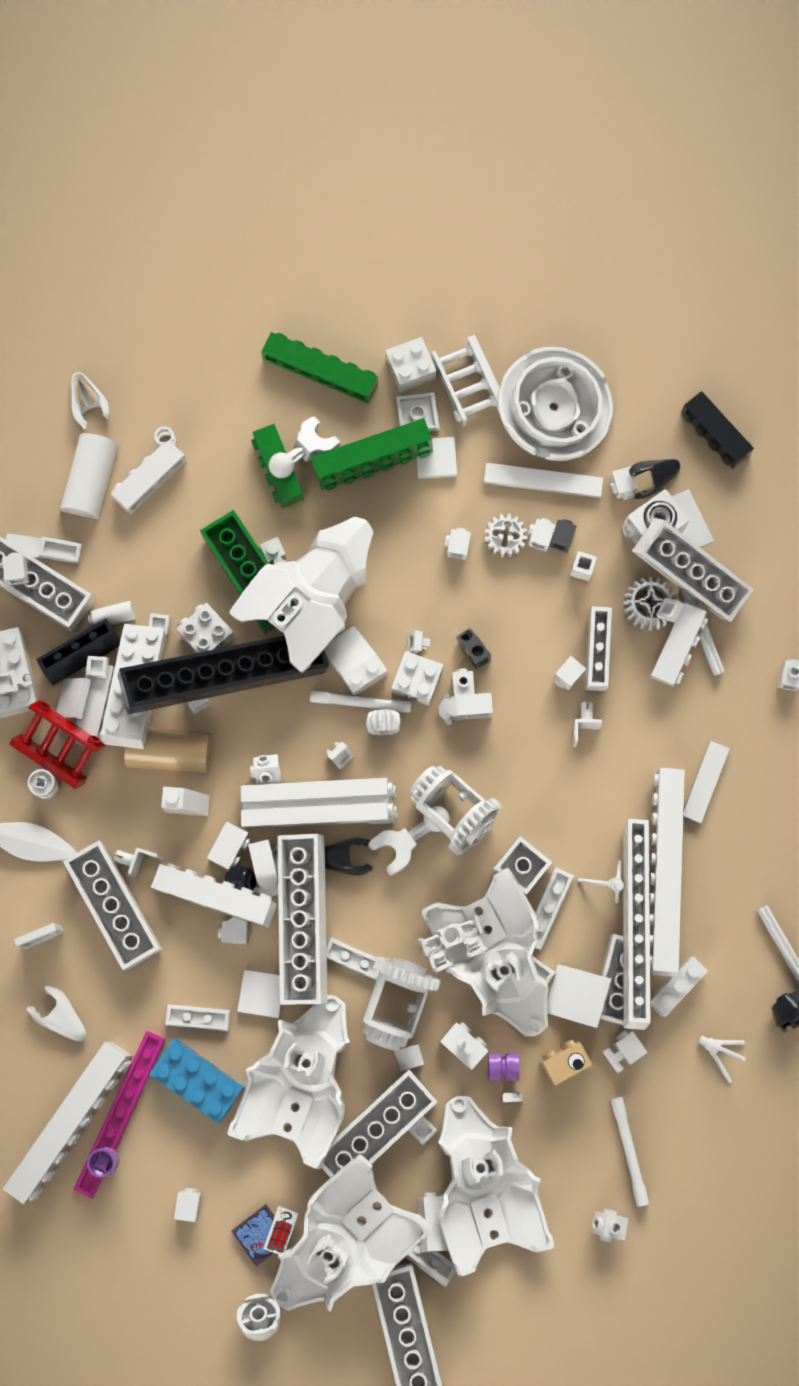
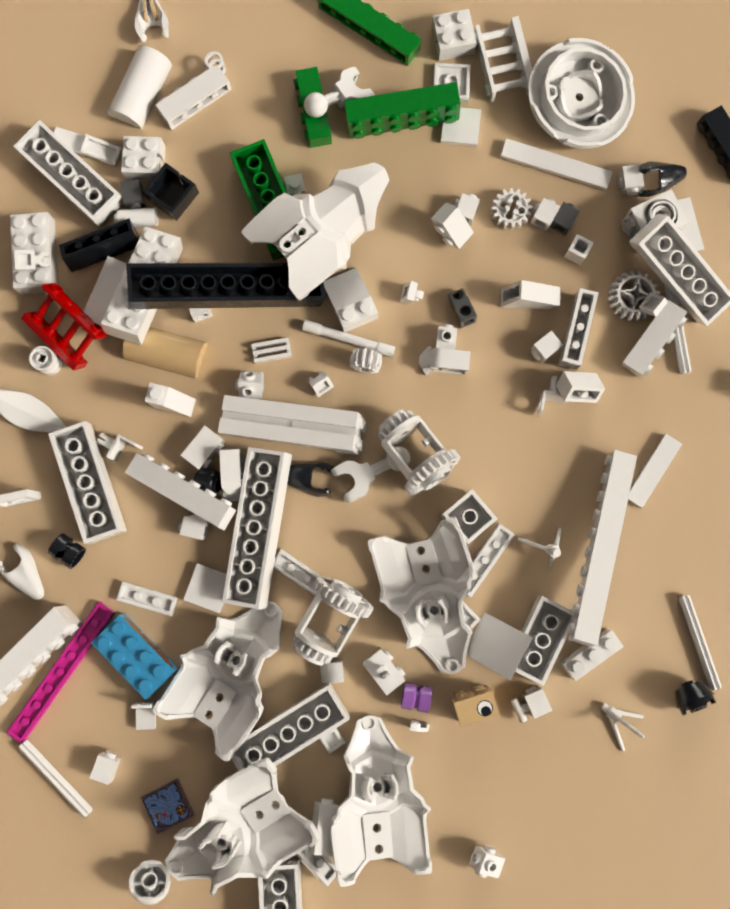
camera: 15 degrees right, 5 degrees up
(15, 569) = (52, 157): white brick -> none
(73, 697) = (87, 287): white tile -> none
(97, 667) = (112, 262): white tile -> none
(101, 981) = (66, 550): none -> black wheel
(103, 591) = (132, 194): none -> dark grey brick
(103, 1162) = (34, 714): medium lavender wheel -> none
(106, 551) = (141, 158): none -> white piece
(135, 1229) = (55, 778): none -> white axle
(143, 583) = (169, 193): none -> black piece
(160, 621) = (180, 231): white tile -> none
(204, 629) = (218, 245): white brick -> none
(219, 1142) = (144, 716): none -> white bracket
(277, 722) = (270, 343): none -> white tile
(281, 1230) = (185, 807): tile -> none
(417, 678) = (404, 326): white brick -> none
(446, 565) = (452, 225): none -> white brick
(464, 933) = (403, 568): white piece -> none
(542, 623) = (530, 296): none -> white slope
(611, 709) = (580, 387): none -> white brick
(636, 924) = (565, 593): white brick -> none
(638, 1186) = (519, 830): white piece -> none

